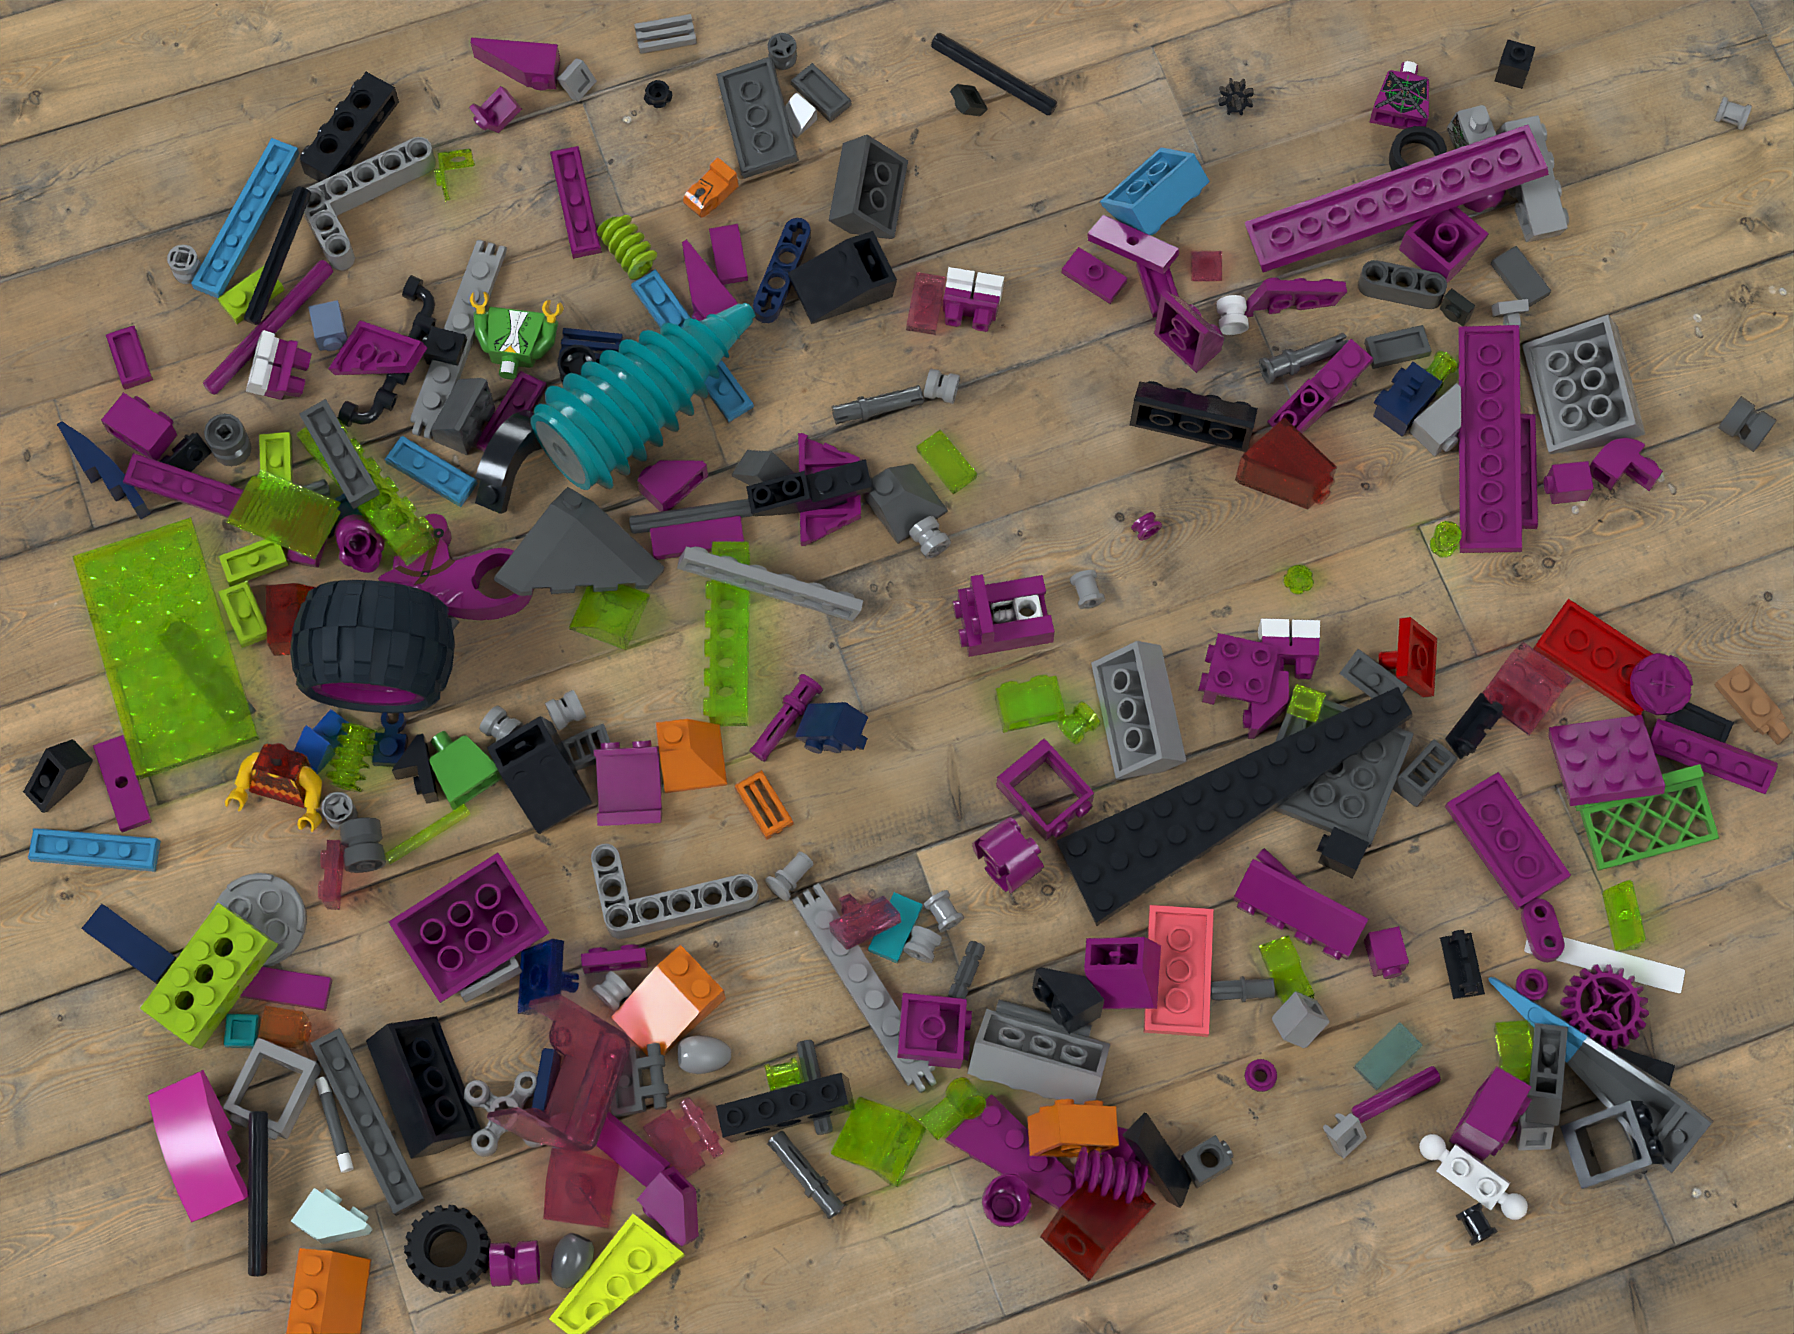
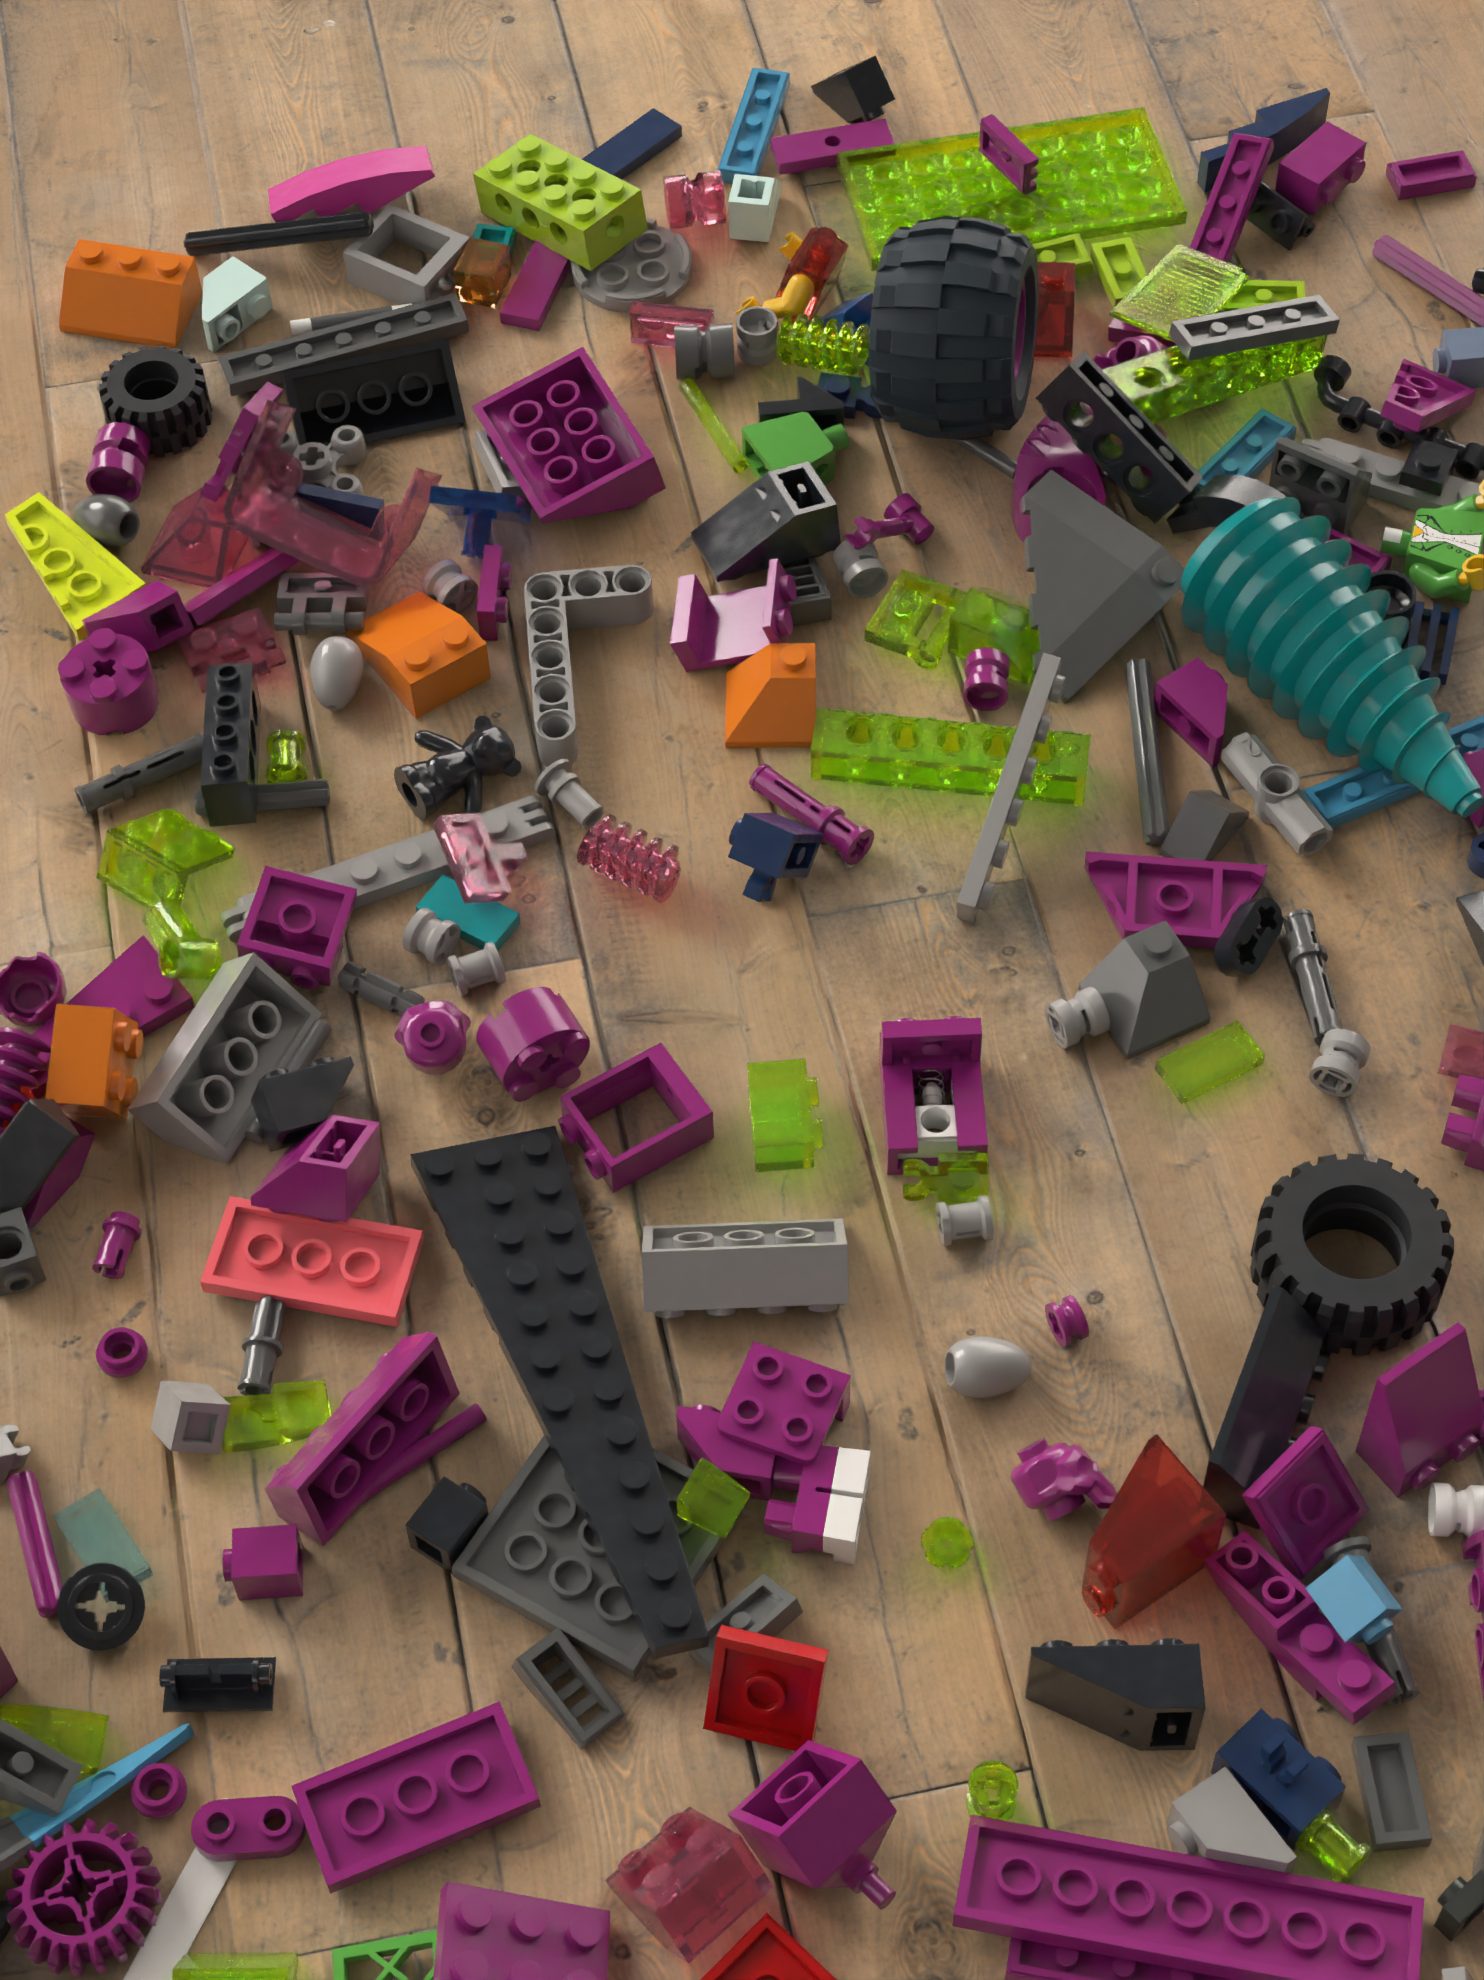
camera: 100 degrees right, 15 degrees down
(147, 643) = (1008, 154): none -> magenta tile
(195, 830) = (753, 207): none -> light aqua slope
(196, 878) = (694, 199): none -> clear pink wheel
(227, 439) = (1297, 246): dark grey wheel -> none
(273, 367) = (1386, 304): hips -> none
(455, 536) = (1119, 416): none -> black brick
(498, 724) = (853, 496): light grey wheel -> none
(512, 1151) = (238, 441): none -> magenta wing
(520, 681) = (901, 517): none -> magenta brick
(601, 676) = (904, 614): none -> clear neon green plate
(657, 616) = (986, 679): none -> magenta wheel
(673, 539) = (1111, 741): magenta tile -> none
(727, 1196) = (109, 683): none -> magenta brick
(753, 420) = (1276, 794): none -> light grey piece
(776, 827) = (689, 786): orange tile -> none
(780, 953) = (456, 766): none -> black piece
(810, 492) = (1161, 853): black slope -> none
(840, 822) = (630, 858): none -> clear pink piece
(854, 441) = (1254, 942): none -> black beam
(1004, 925) = (433, 1036): none -> magenta head
(1060, 596) = (955, 1179): none -> clear neon green plate
(1078, 722) = (735, 1173): clear neon green wheel -> none
(1083, 336) = (1367, 1200): none -> black tyre
(1186, 1097) = (116, 1244): none -> magenta pin
(1187, 567) = (985, 1366): none -> light grey animal
(1248, 388) = (1305, 1502): none -> magenta plate
(1254, 519) = (1058, 1478): none -> magenta head
(1308, 358) = (1355, 1600): none -> dark azure brick
(1379, 459) = (1125, 1691): none -> black slope
(1440, 1033) = (82, 1625): none -> black gear
(1470, 728) = (632, 1774): black hinge -> none
(1487, 620) = (820, 1822): none -> magenta piece

